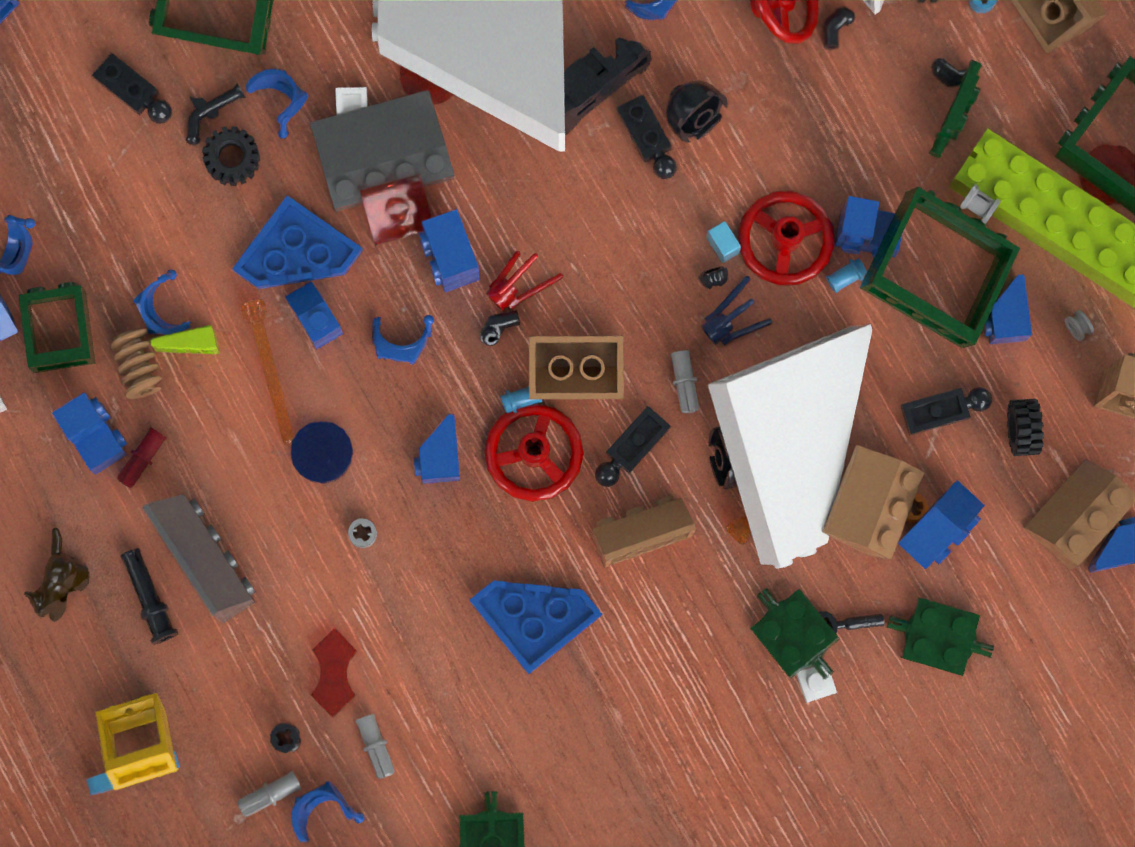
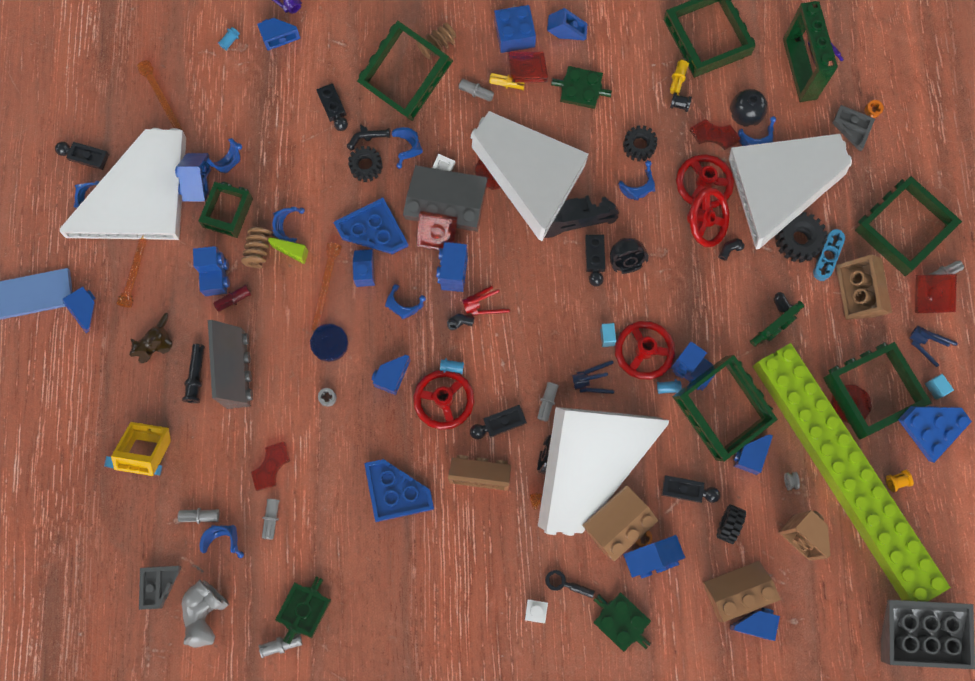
camera: 35 degrees right, 5 degrees down
(276, 741) = (217, 488): black bush -> none
(576, 367) = (489, 363): medium nougat slope -> none
(714, 277) = (594, 352): black piece -> none
(795, 633) = (537, 576): dark green plate -> none
(980, 203) = (766, 382): light grey bush -> none

